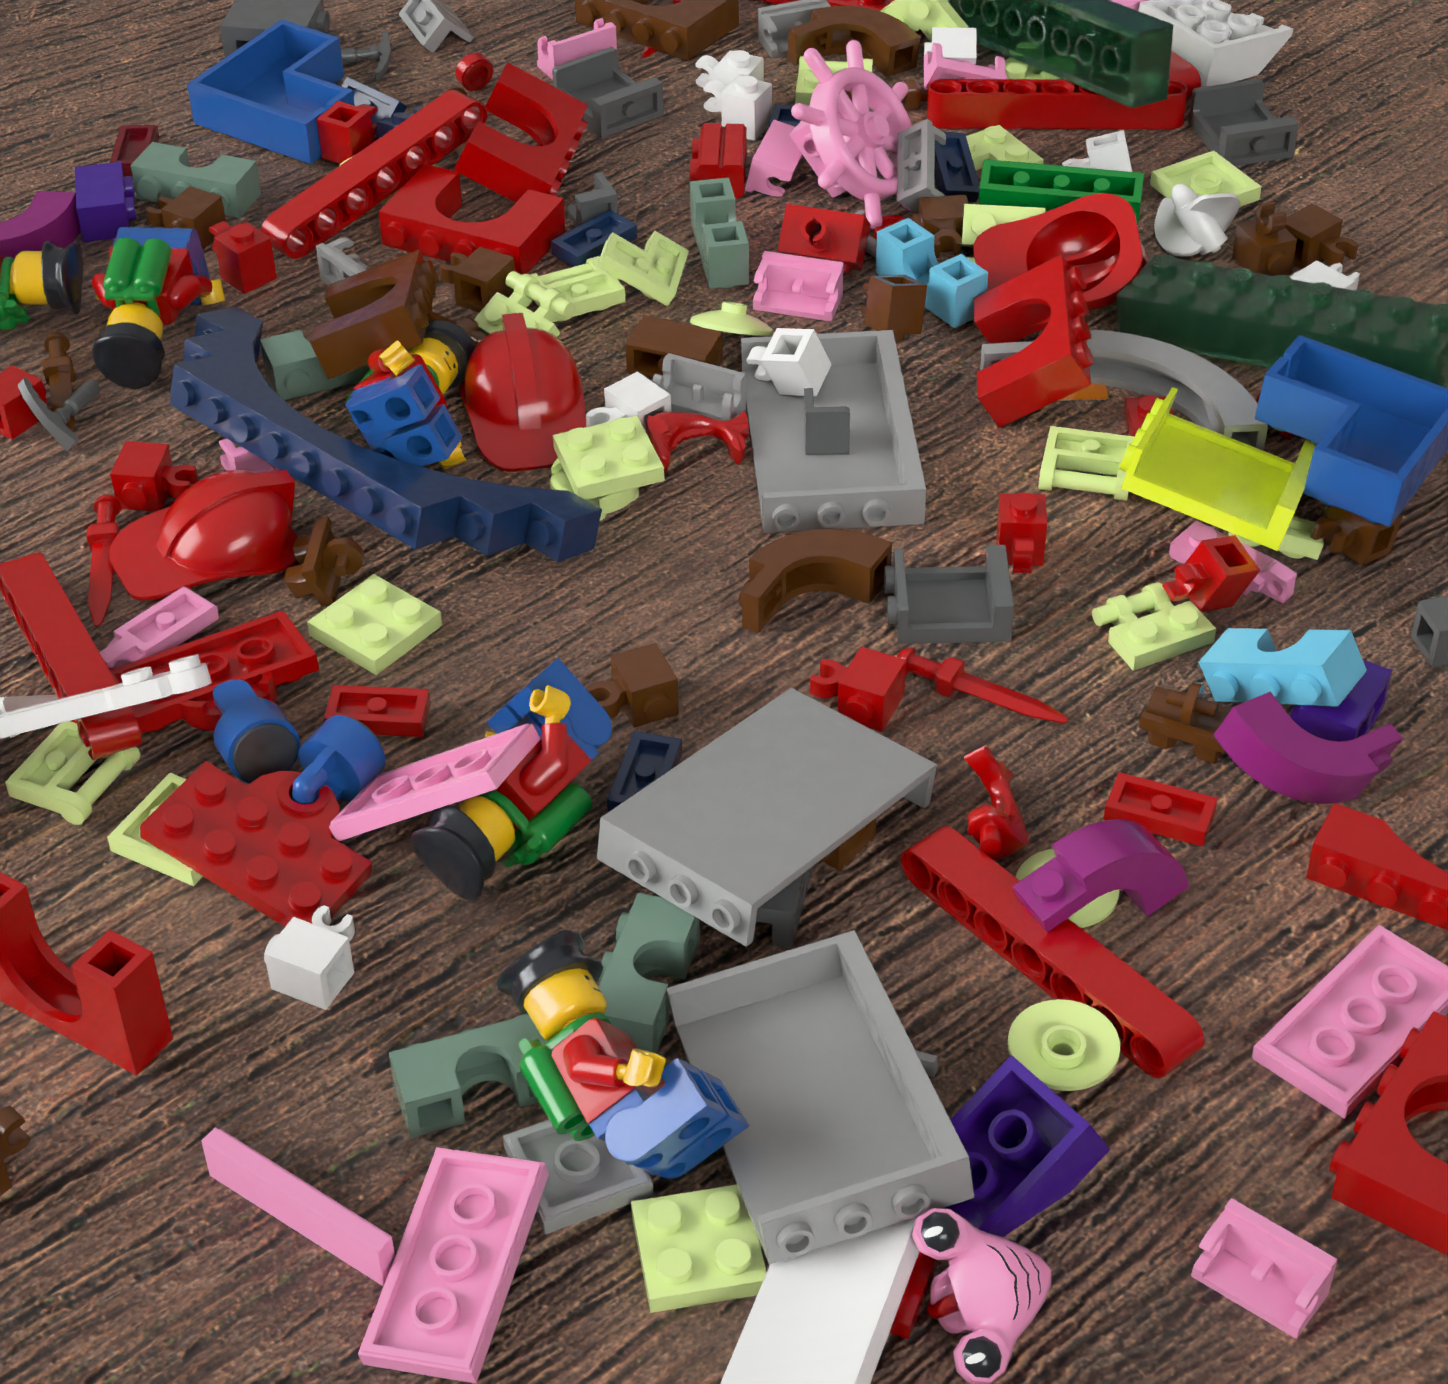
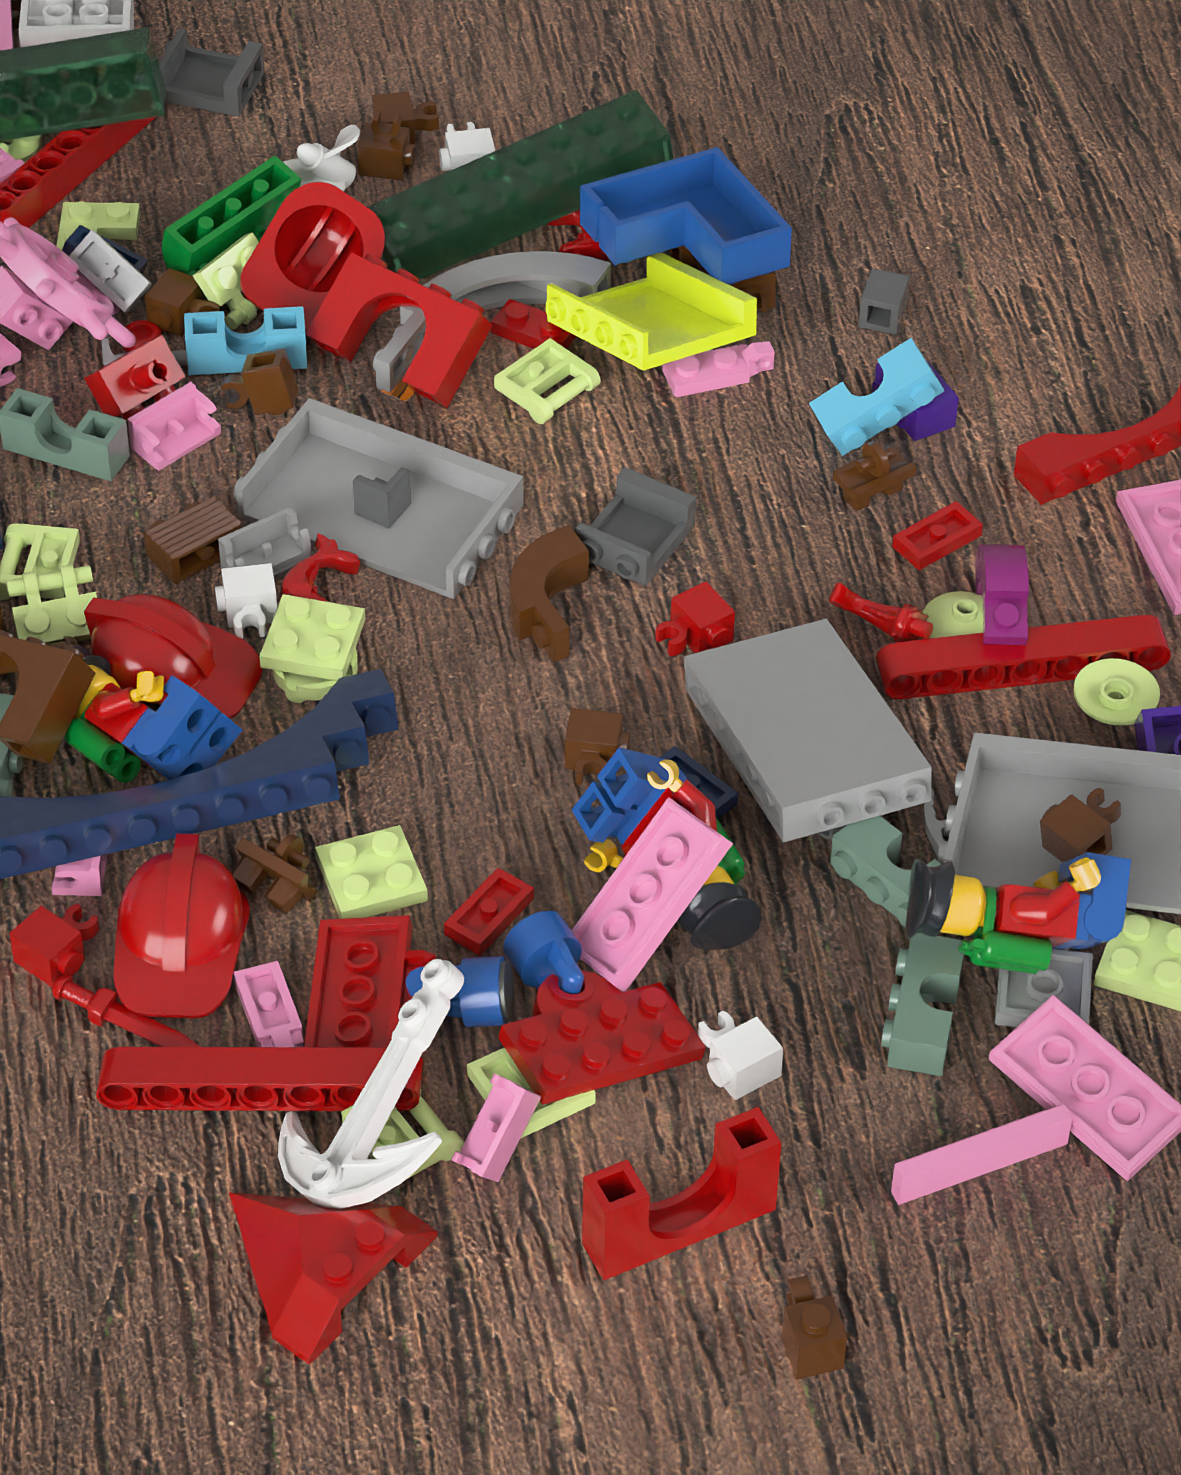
camera: 60 degrees left, 5 degrees up
(90, 820) = (497, 1128): none -> bright pink hinge
(652, 270) = (60, 500): yellowish green plate -> none
(732, 319) = (192, 487): yellowish green dish -> none
(785, 1076) = (1079, 828): none -> reddish brown brick
(792, 361) = (296, 472): white brick -> none
(951, 677) = (718, 573): red sword -> none
(1022, 529) = (602, 453): red brick -> none
(1106, 153) = (199, 172): white brick -> none
(1156, 636) = (760, 442): yellowish green plate -> none
(1206, 176) = (266, 132): yellowish green plate -> none
(1213, 574) = (743, 380): red brick -> none
(1296, 763) = (954, 444): magenta arch -> none

